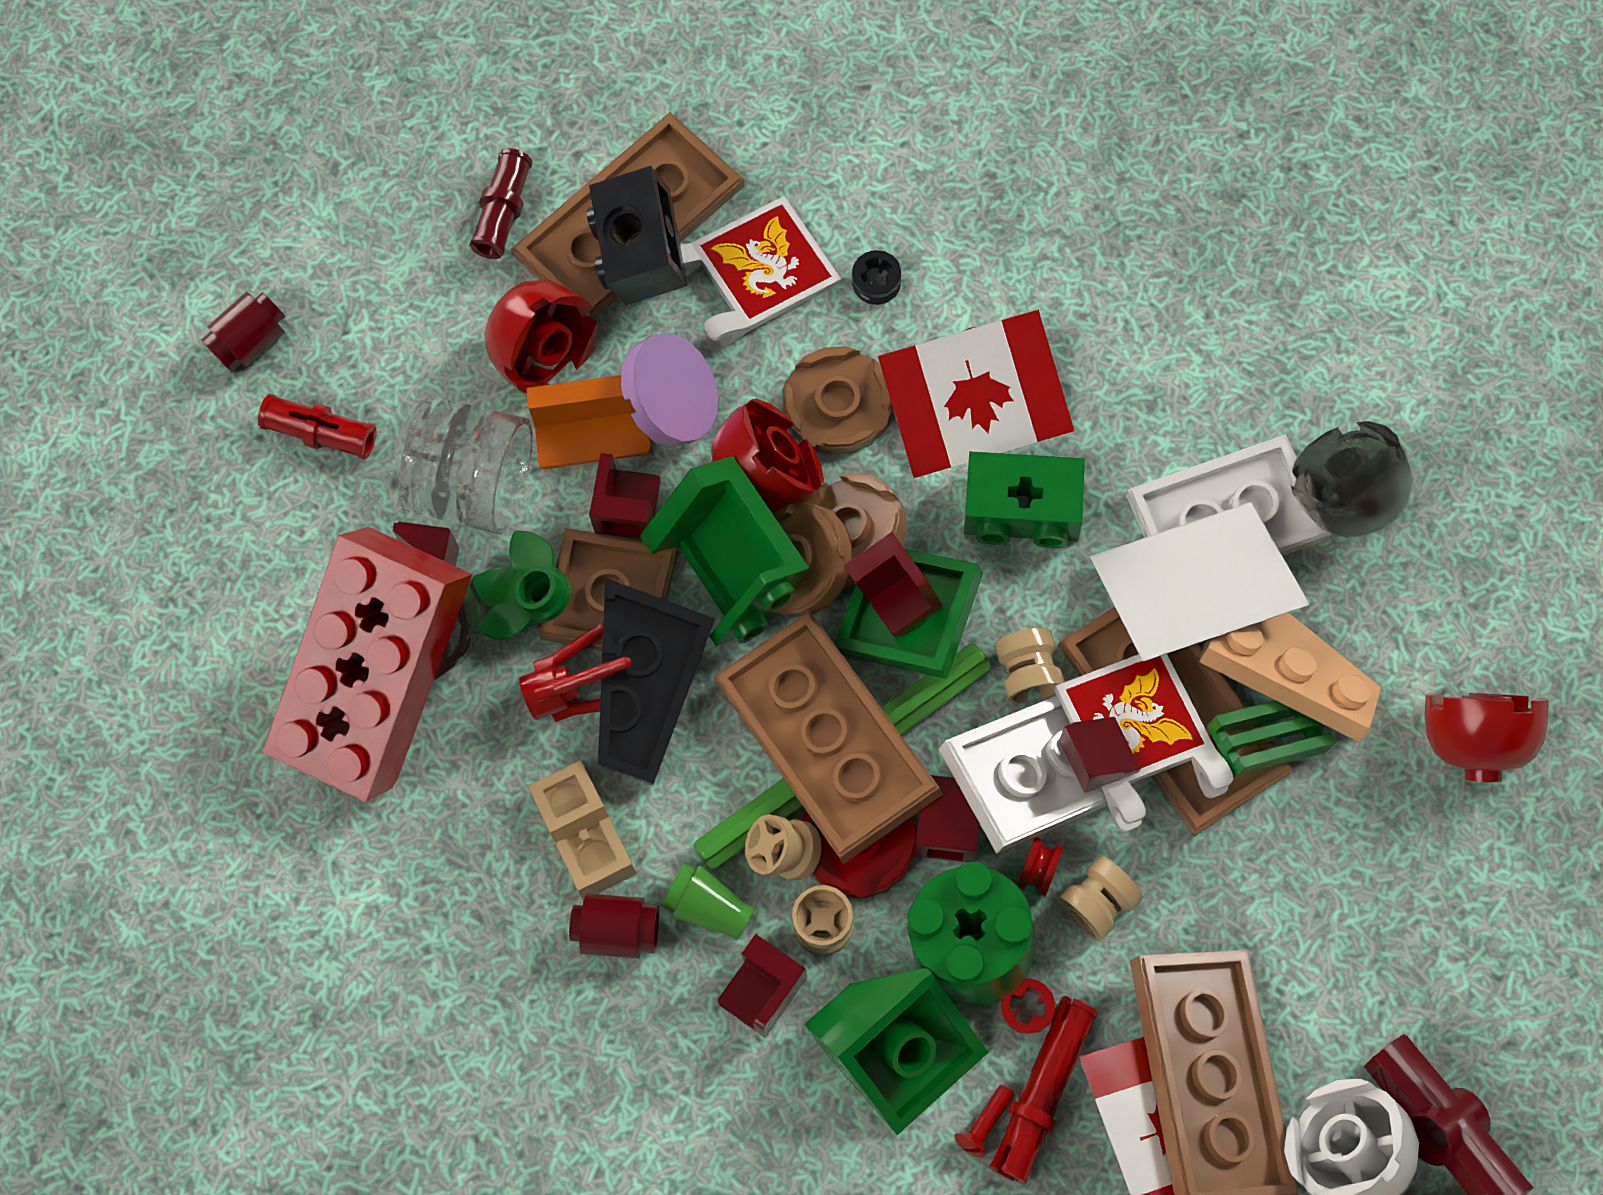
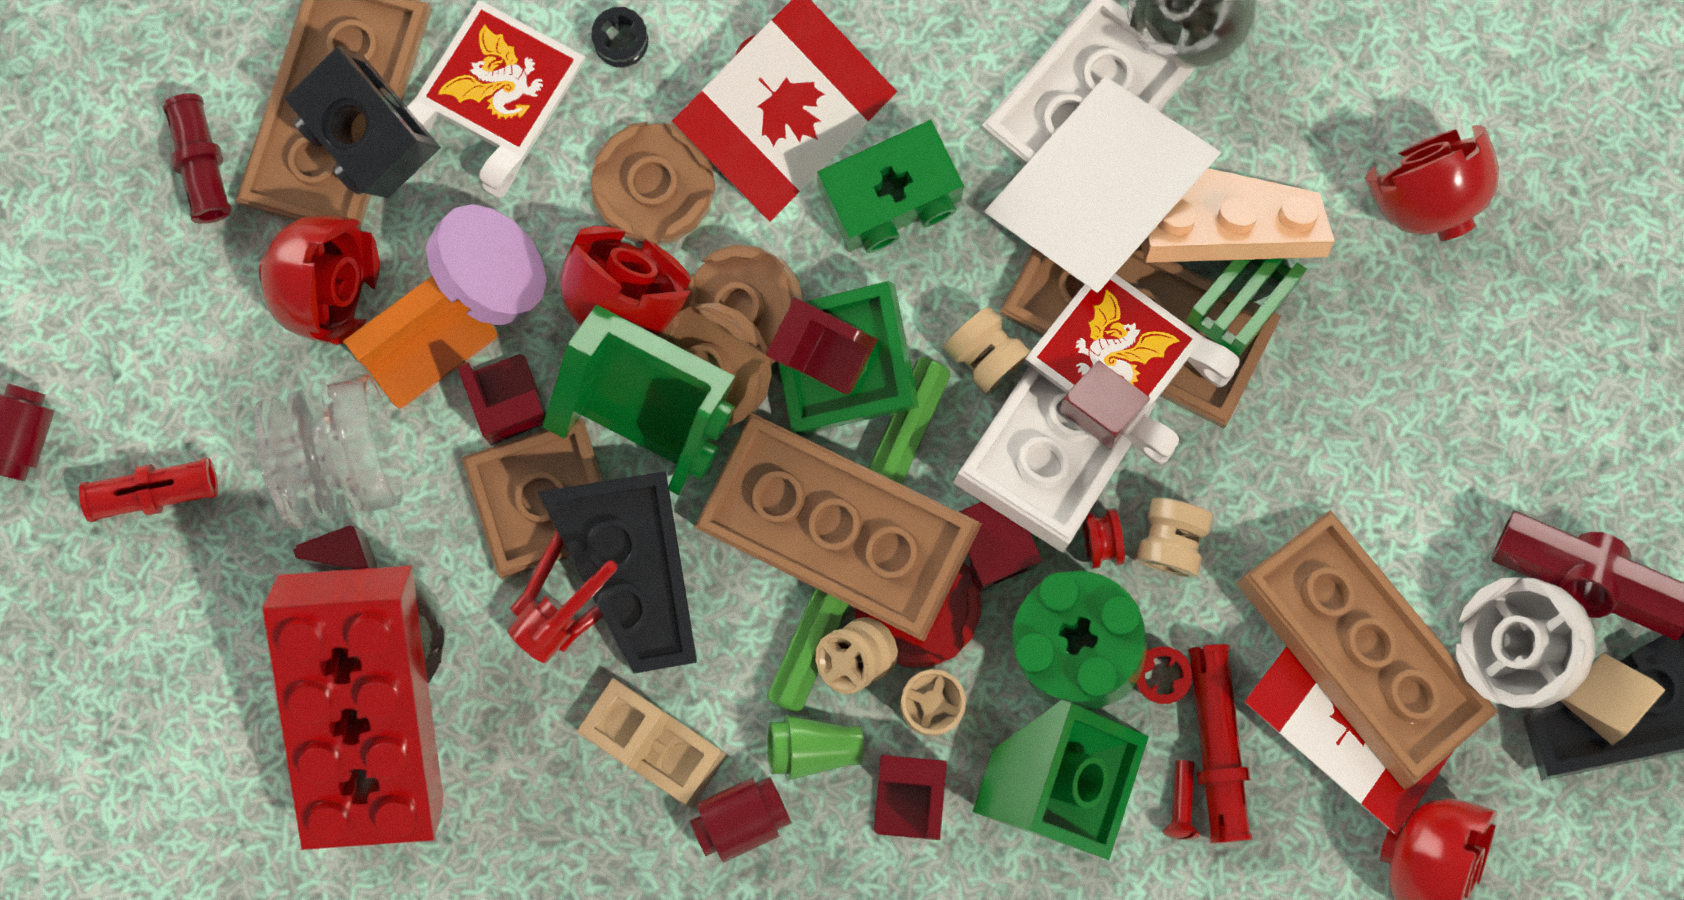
camera: 35 degrees left, 10 degrees up
(517, 587) = (450, 542): green plate -> none

